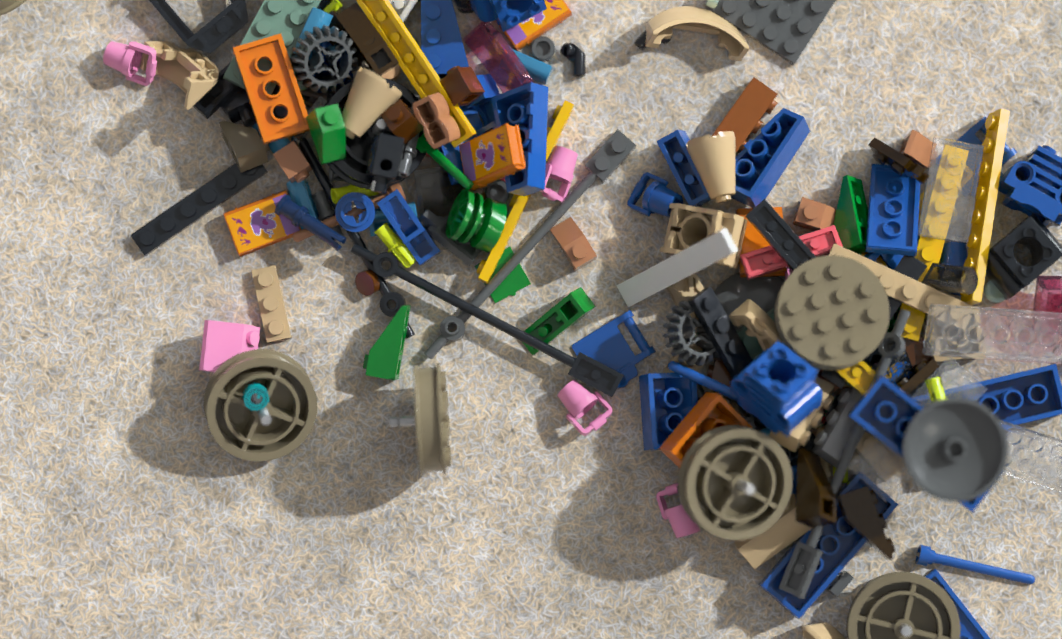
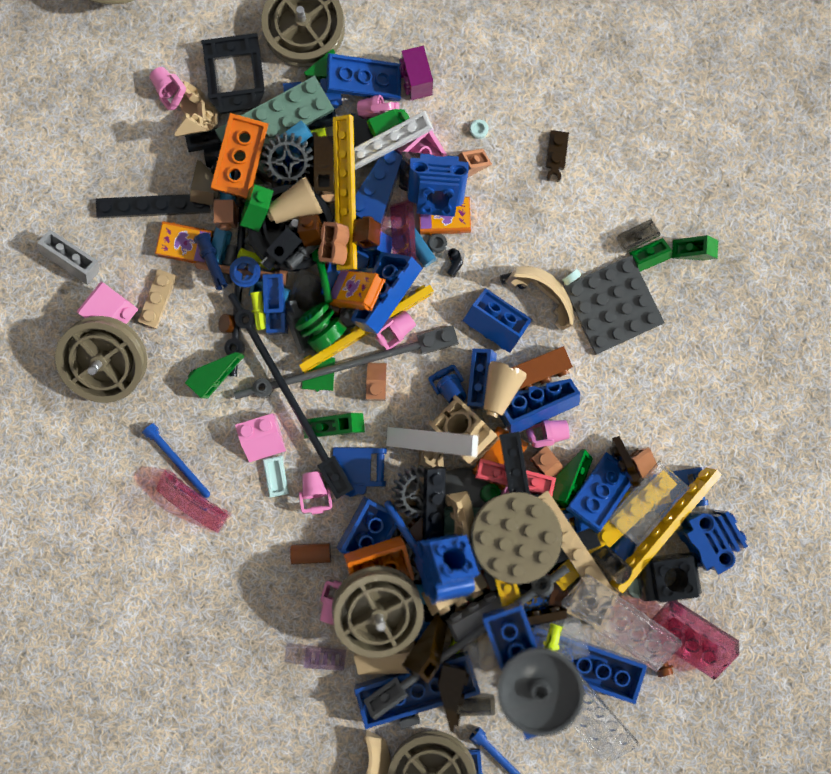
camera: 30 degrees right, 0 degrees up
(145, 318) = (68, 257): none -> light grey brick
(255, 397) = (97, 351): teal tile -> none
(363, 453) = (153, 434): none -> blue piece
(430, 419) = (202, 439): dark tan wheel -> none
(455, 499) = (191, 502): none -> clear pink windscreen
(486, 383) = (260, 437): none -> bright pink slope
(528, 416) = (275, 476): none -> light aqua tile
(620, 475) = (310, 553): none -> dark orange brick
(663, 93) = (497, 320): none -> blue slope
(689, 585) = (312, 649): none -> clear purple slope
(772, 286) = (489, 491): none -> green tile
(799, 178) = (552, 431): none -> bright pink piece
(904, 522) = (478, 706): none -> clear smoke brick

